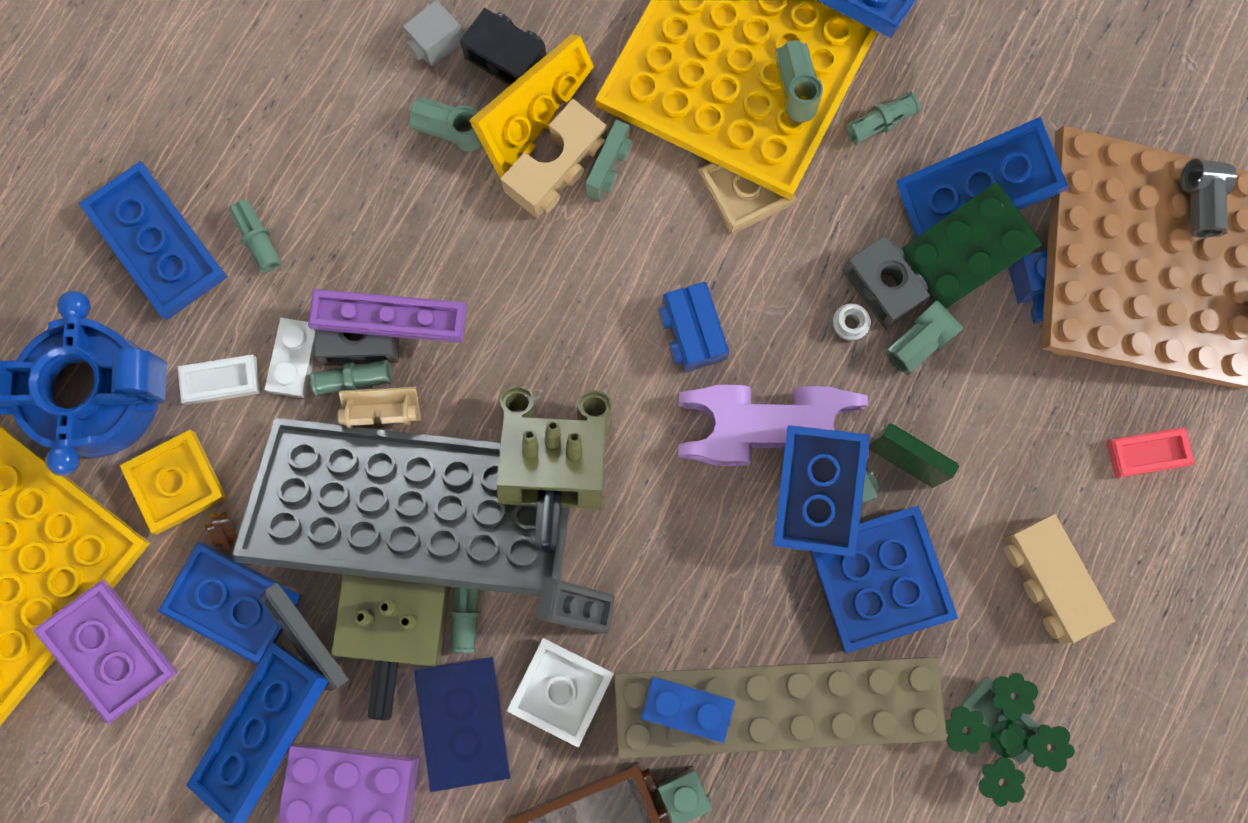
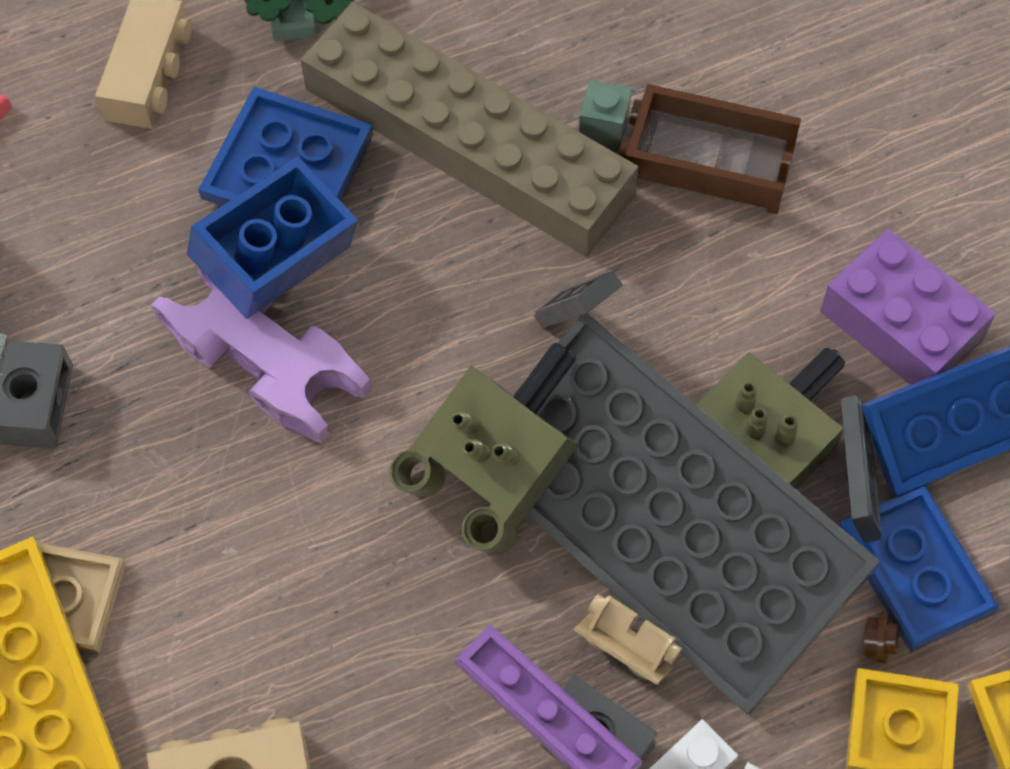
camera: 140 degrees left, 15 degrees down
(351, 377) = (636, 698): sand green pin -> none
(462, 724) = (759, 304): clear blue tile -> none
(464, 620) = (699, 376): sand green axle -> none
(560, 692) = (652, 266): white plate -> none
(603, 173) = (196, 715): sand green plate -> none
(687, 709) = (547, 145): blue brick -> none
(694, 327) = (248, 487): blue brick -> none
(856, 312) = (93, 377): white plate -> none
(913, 456) = (164, 221): dark green tile -> none
(930, 332) = (42, 321): sand green piece -> none

